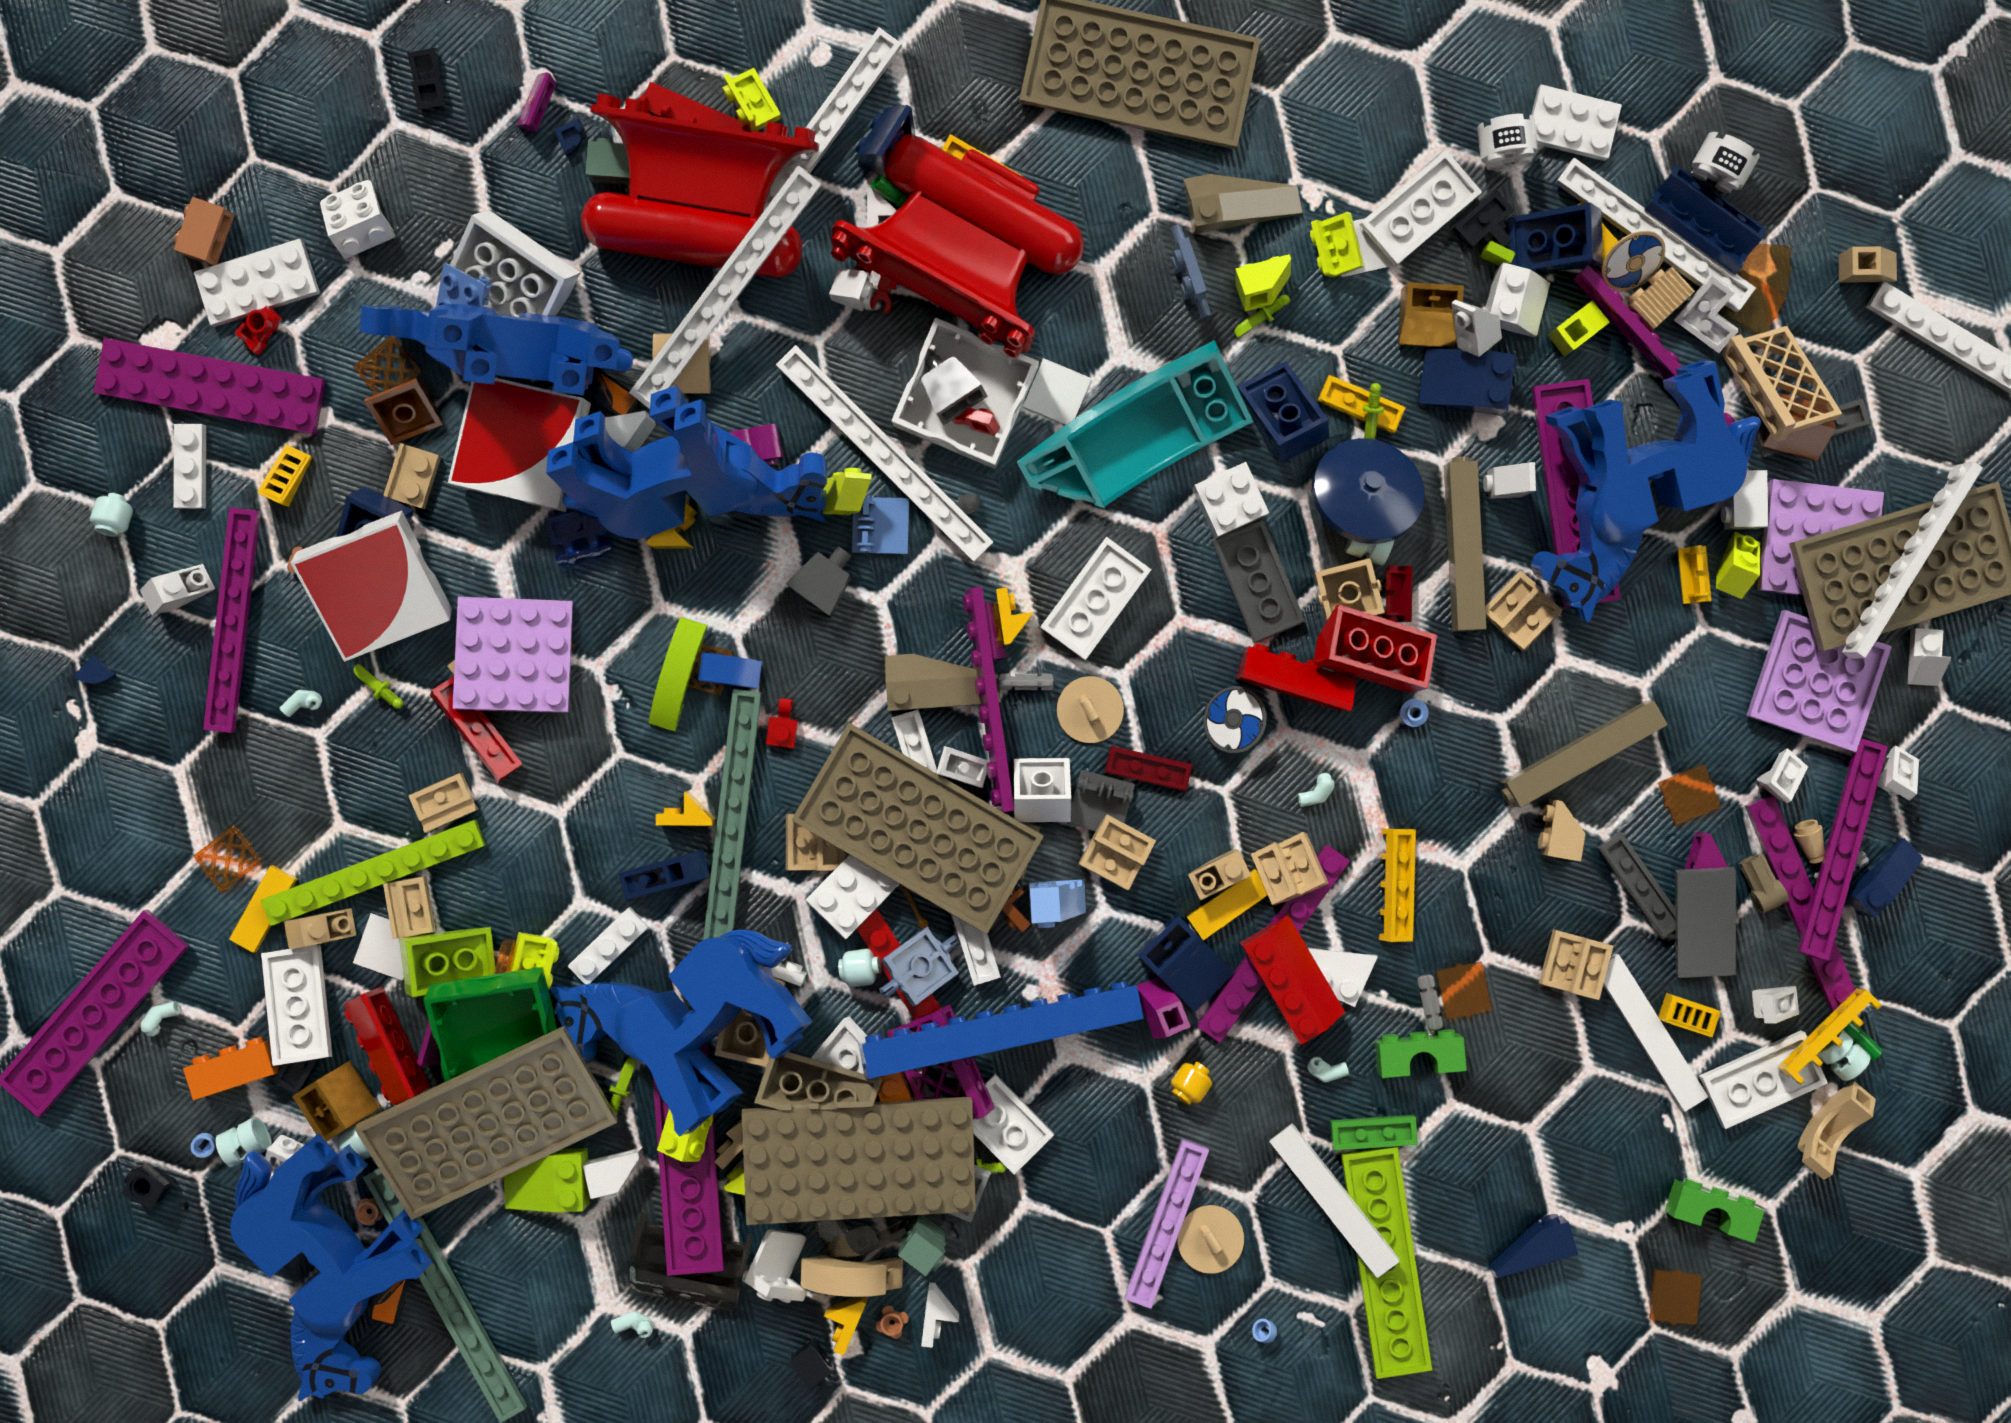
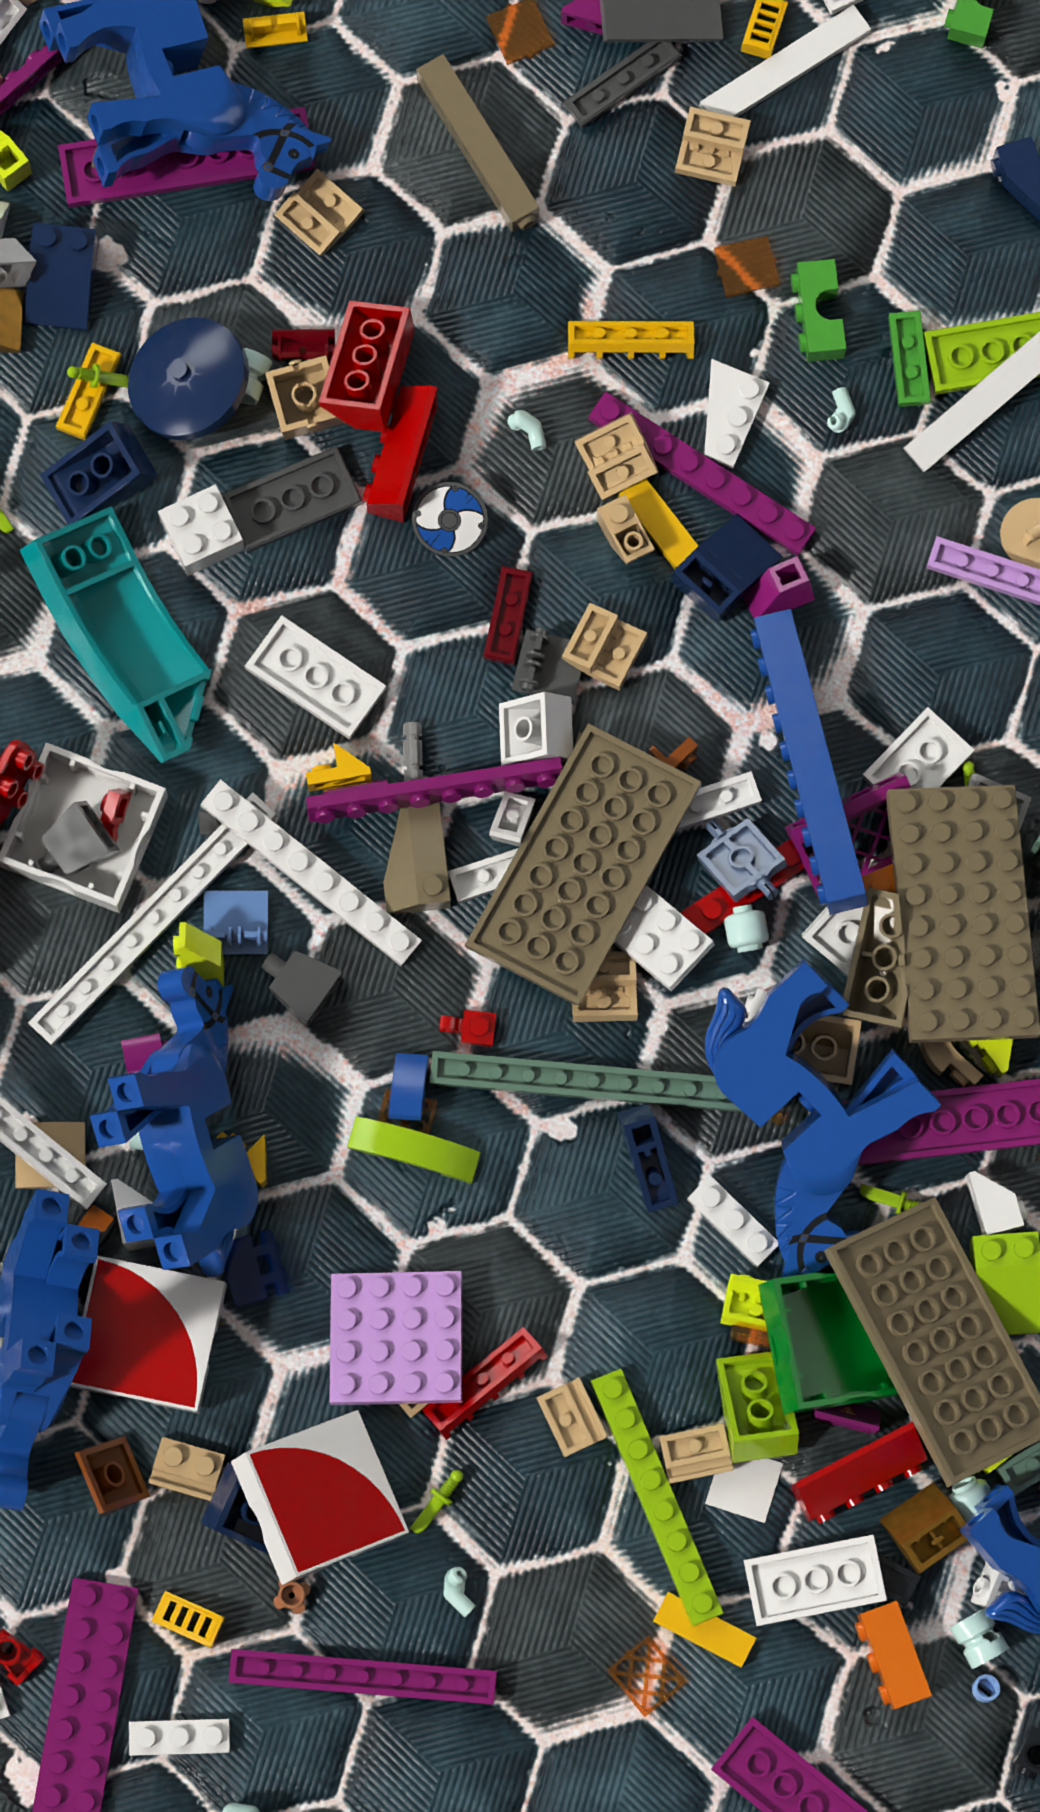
camera: 90 degrees left, 10 degrees down
(151, 1021) = (836, 1754): light aqua arm -> none
(176, 589) = (327, 1744): white slope -> none
(320, 928) = (725, 1558): tan slope -> none
(376, 352) = (76, 1524): clear orange window -> none
(686, 1147) = (946, 1125): neon yellow bracket -> none
(694, 814) = (576, 1124): yellow slope -> none
(920, 590) = (310, 873): none -> white plate
(922, 923) = (692, 863): clear orange hinge -> none
(1056, 901) = (662, 713): light blue wedge -> none
(1057, 392) = (79, 726): white sticker -> none
(1090, 709) = (442, 681): tan shield -> none
(1191, 1083) = (862, 557): yellow head -> none
(1293, 979) = (740, 448): red slope -> none
(1405, 712) = (436, 334): light blue plate -> none
(1430, 1002) = (761, 301): light grey axle -> none
(1464, 545) = (247, 274): dark tan brick -> none
(1510, 481) = (174, 225): white slope -> none
(1561, 833) = (566, 164): tan slope -> none

